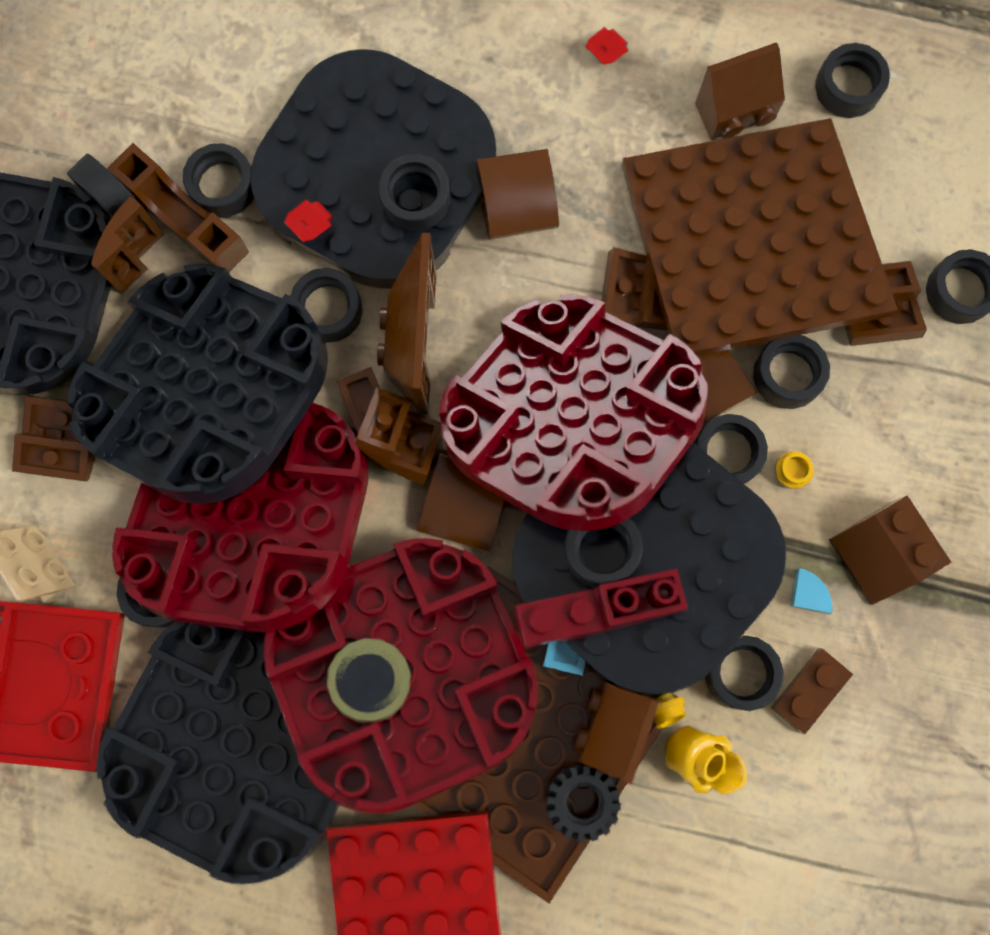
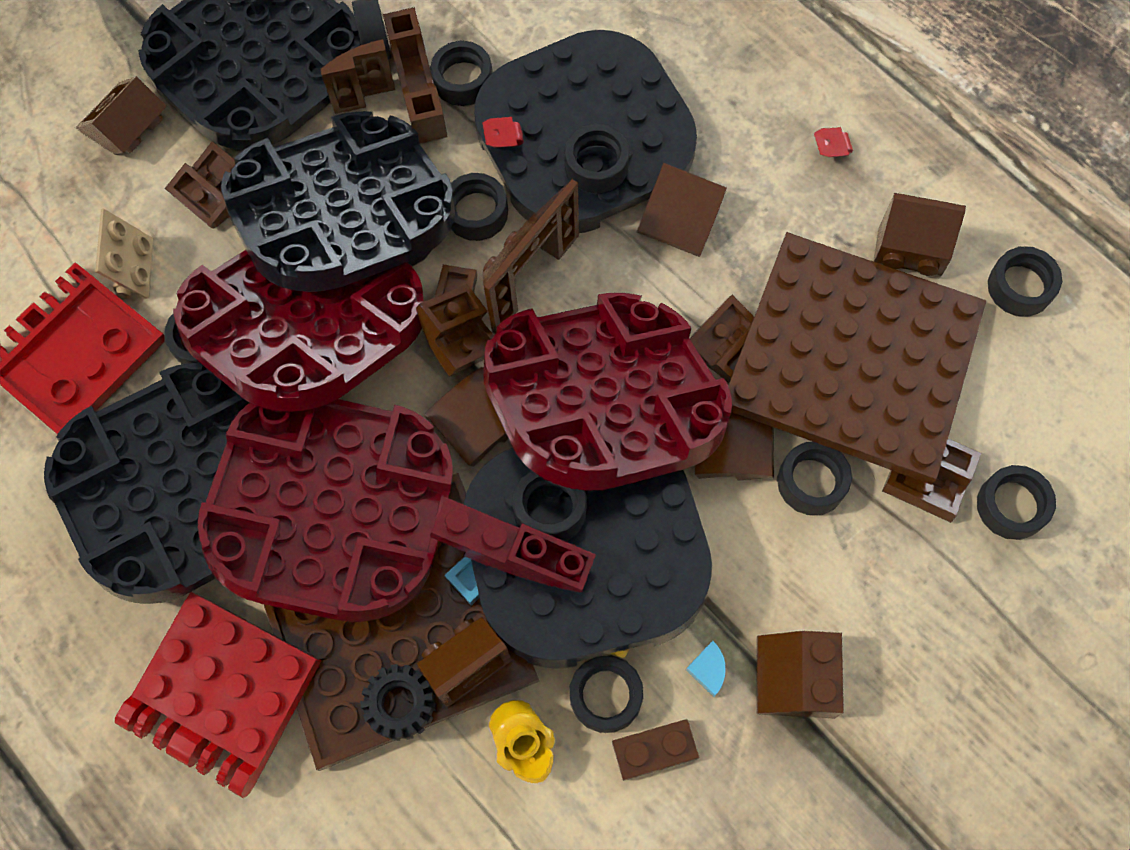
camera: 35 degrees right, 10 degrees down
(368, 680) = (298, 487): tile -> none
(669, 711) = (517, 675): yellow plate -> none
(749, 430) = (740, 491): black tyre -> none
(794, 470) = (764, 559): yellow plate -> none

